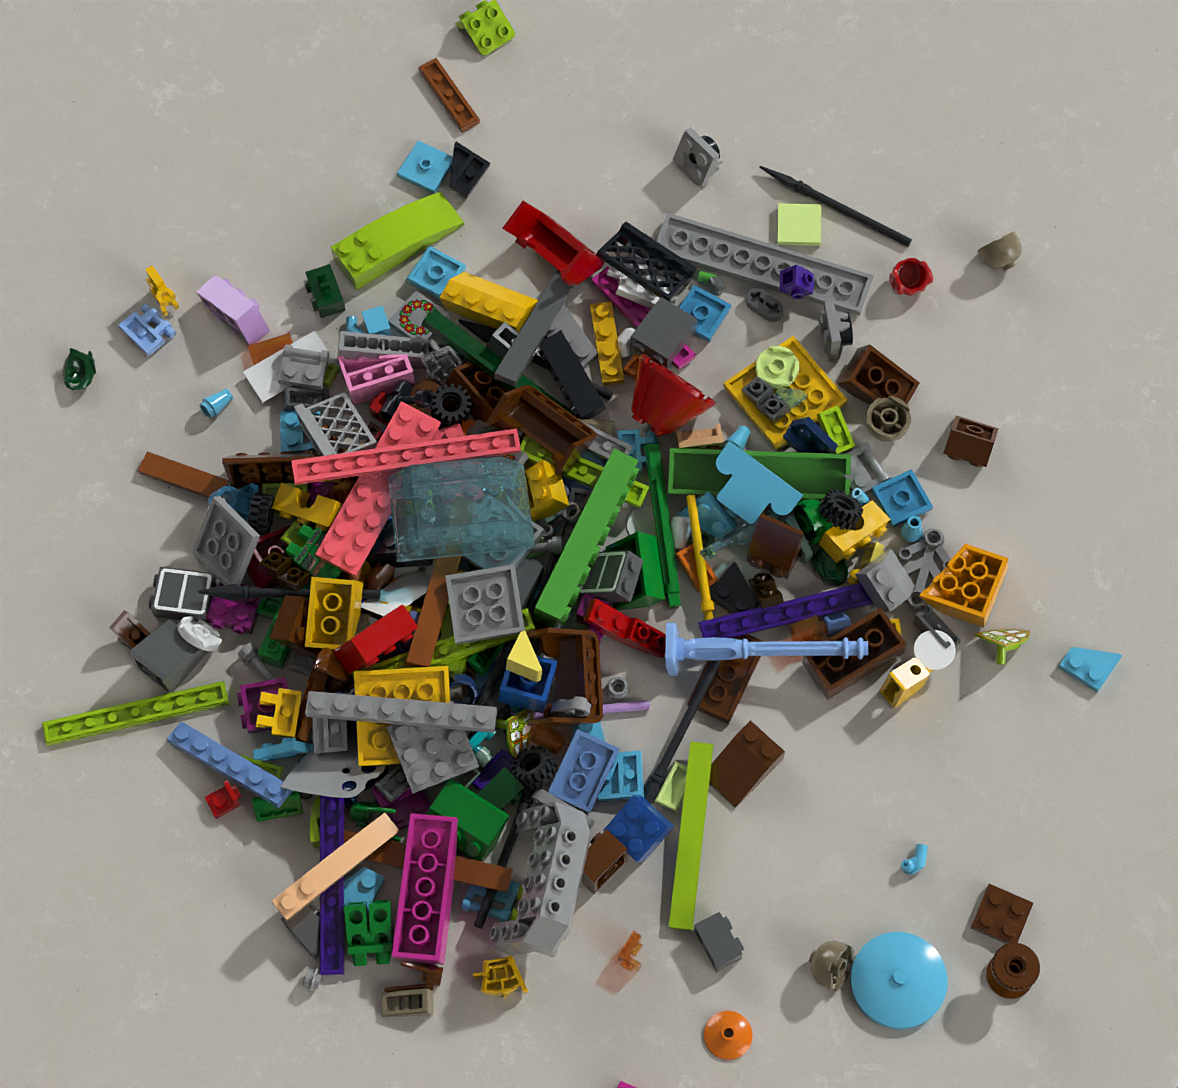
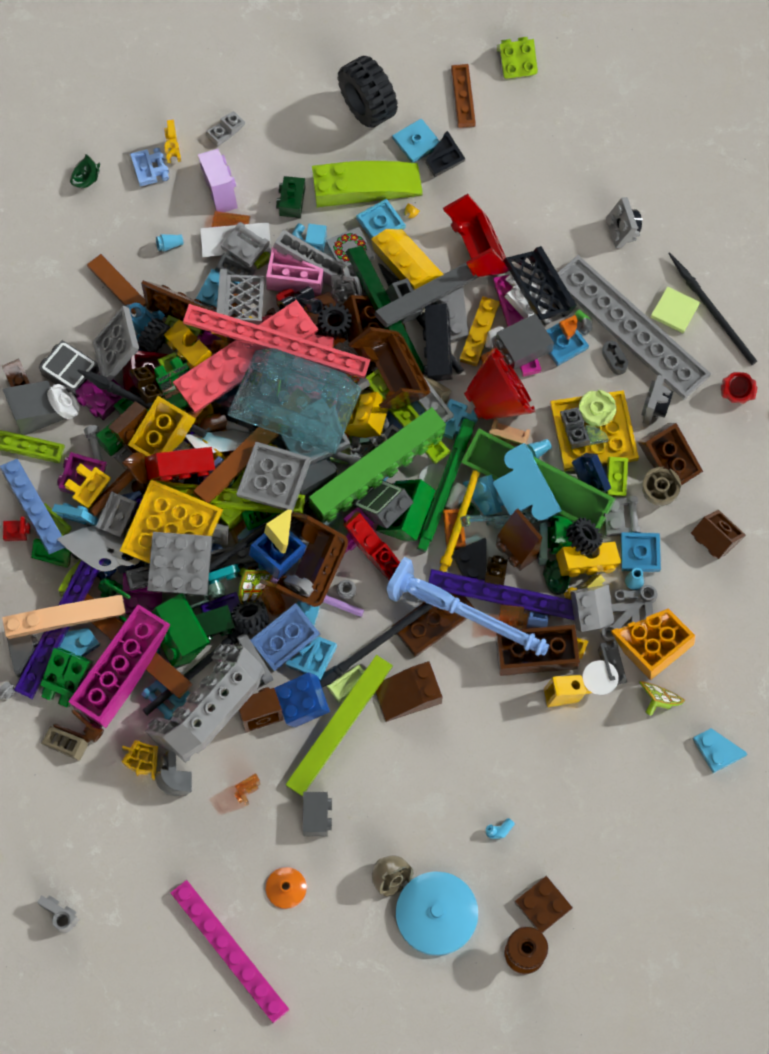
camera: 25 degrees right, 0 degrees up
(208, 249) = (225, 129): none -> light grey slope
(349, 137) = (367, 91): none -> black tyre
(401, 711) = (169, 525): light grey plate -> none
(461, 679) = (228, 543): dark blue piece -> none
(464, 245) = (412, 210): none -> yellow hinge
(546, 984) = (172, 781): none -> dark grey brick
(700, 294) = (569, 326): none -> orange tile
(796, 282) = (646, 350): dark purple brick -> none
(860, 496) = (606, 534): medium azure arm -> none

